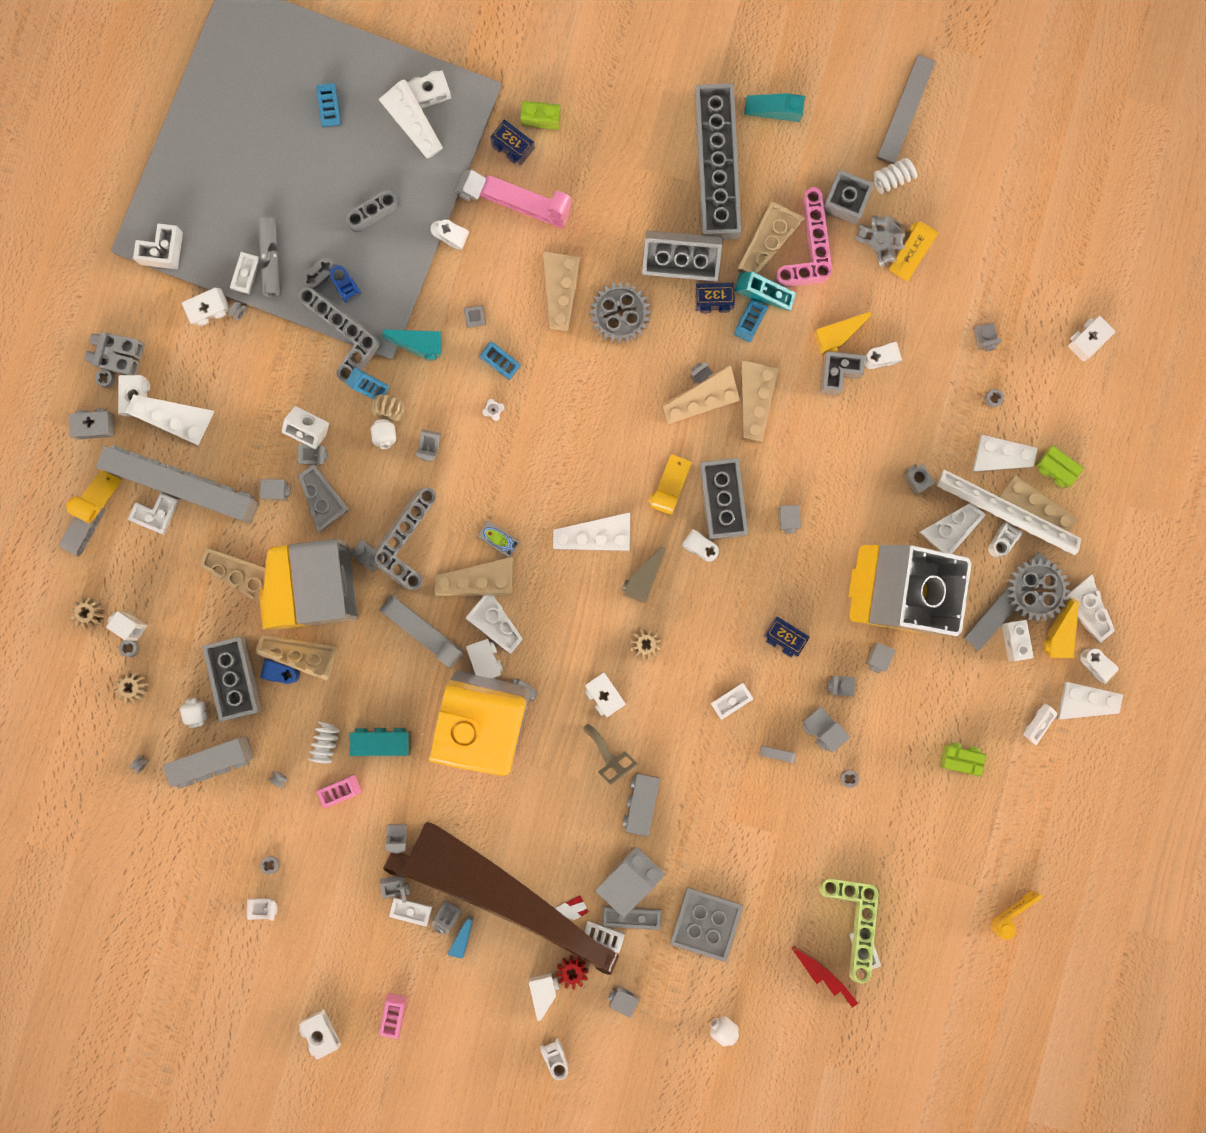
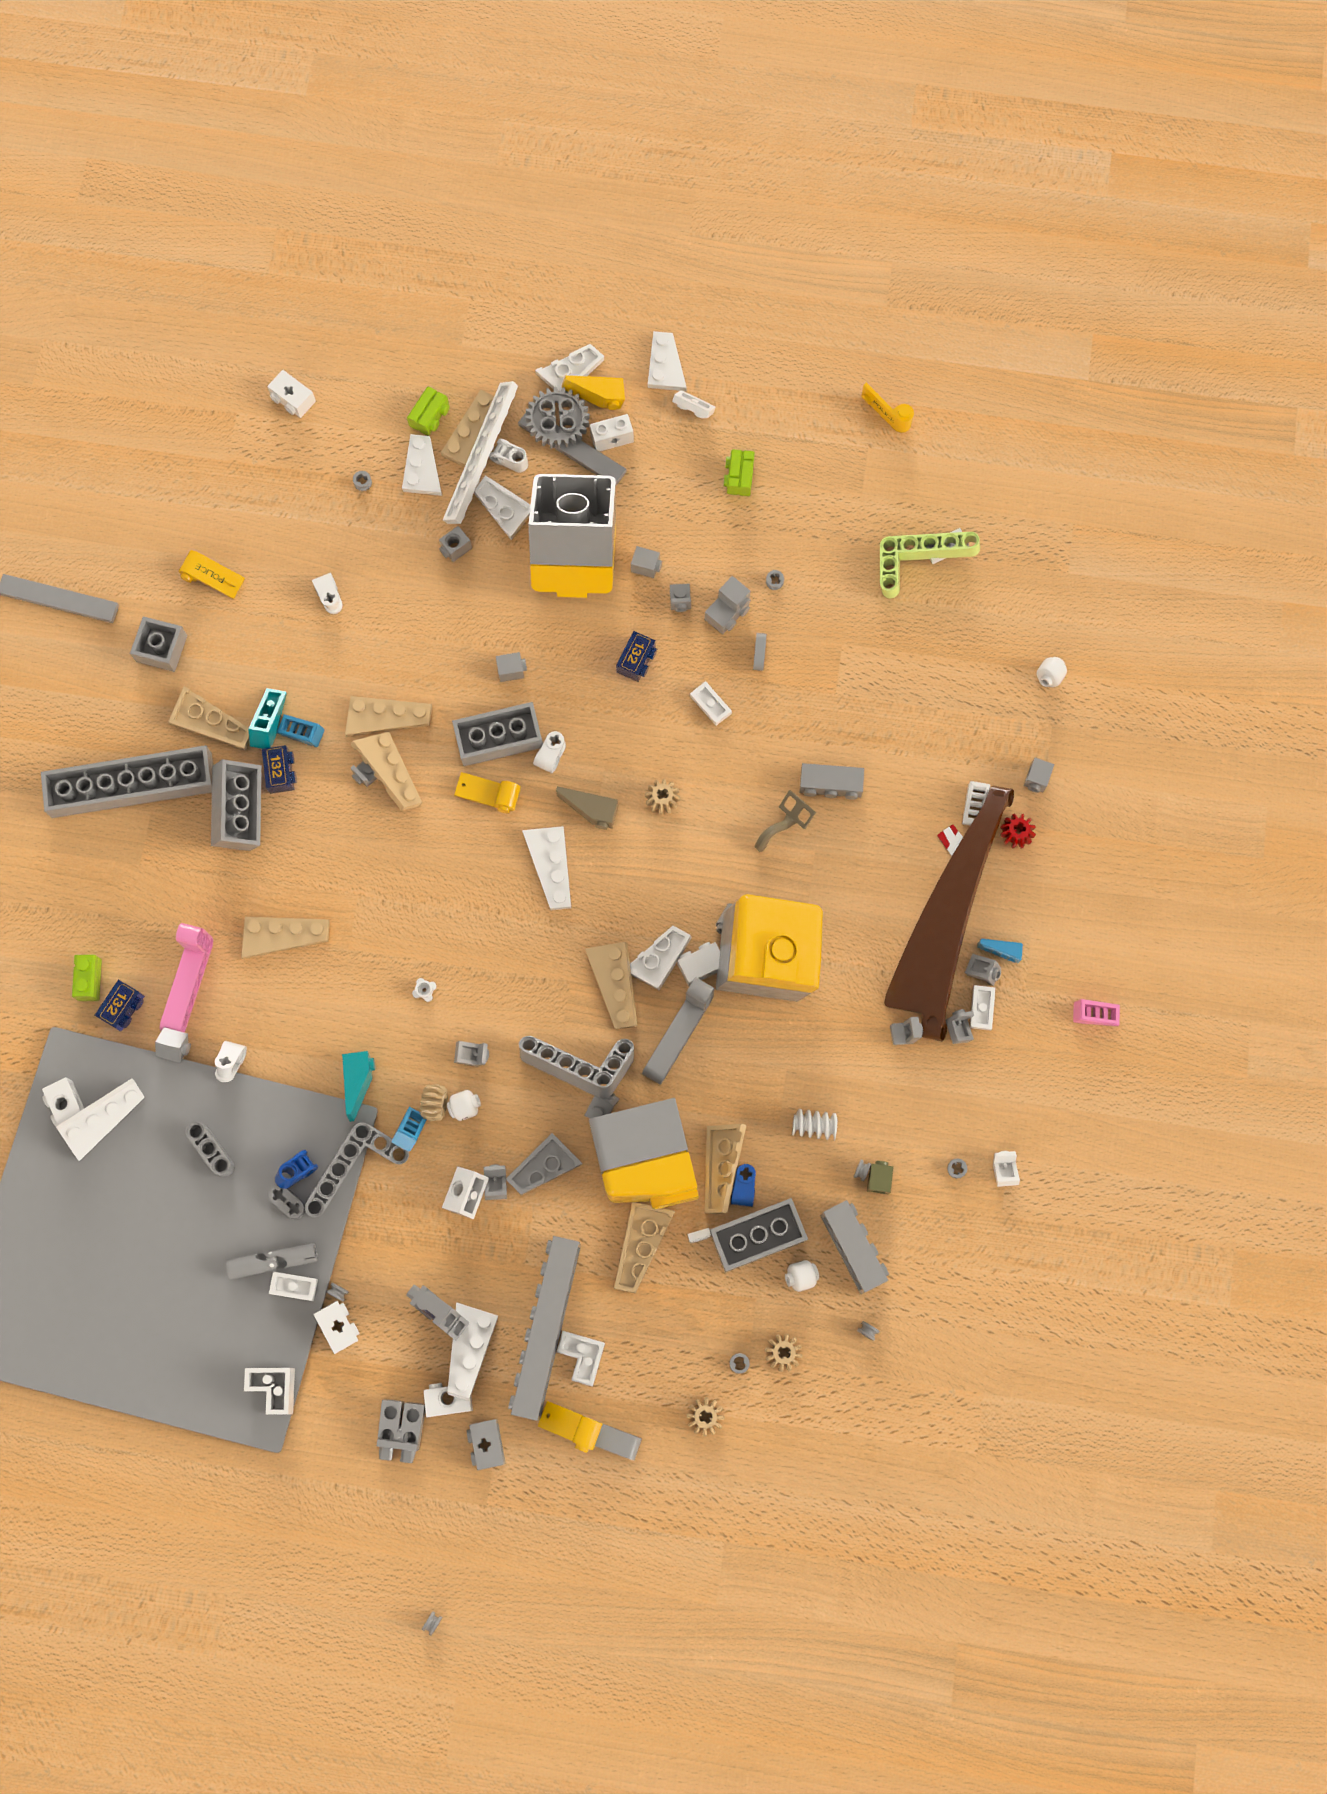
camera: 90 degrees left, 10 degrees down
(98, 378) = (430, 1432): light grey bush -> none
(126, 626) = (714, 1365): white brick -> none
(202, 396) = (437, 1310): none -> light grey hips
(241, 627) = (699, 1235): none -> white tile
(269, 794) = (880, 1178): none -> olive brick
(274, 489) = (539, 1219): light grey brick -> none
(321, 1023) = (1117, 1090): white brick -> none
(326, 89) = (69, 1217): dark azure slope -> none
(350, 786) = (872, 1099): bright pink slope -> none
(380, 742) = (805, 1063): teal brick -> none
(474, 316) = (321, 1023): light grey tile -> none
(497, 350) = (369, 1001): dark azure slope -> none
(498, 539) = (567, 966): tile -> none
(543, 993) = (1045, 857): white slope -> none
(553, 1056) = (1107, 837): white piece -> none
(614, 700) = (726, 821): white brick -> none
(615, 296) = (321, 859): light grey gear -> none
(630, 882) = (913, 782): light grey slope -> none
(637, 918) = (951, 779): light grey tile -> none
(706, 924) = (946, 702): light grey plate -> none
(776, 106) = (62, 729): teal slope -> none
(813, 243) = (212, 675): bright pink beam -> none
(820, 972) = (977, 586): red slope -> none
(835, 335) = (309, 639): yellow slope -> none
(838, 366) = (345, 636): light grey brick -> none
(883, 238) = (201, 606): light grey piece -> none
(893, 174) = (131, 600): white piece -> none
(986, 337) = (298, 494): light grey bracket -> none
(1101, 666) = (626, 356): white piece -> none

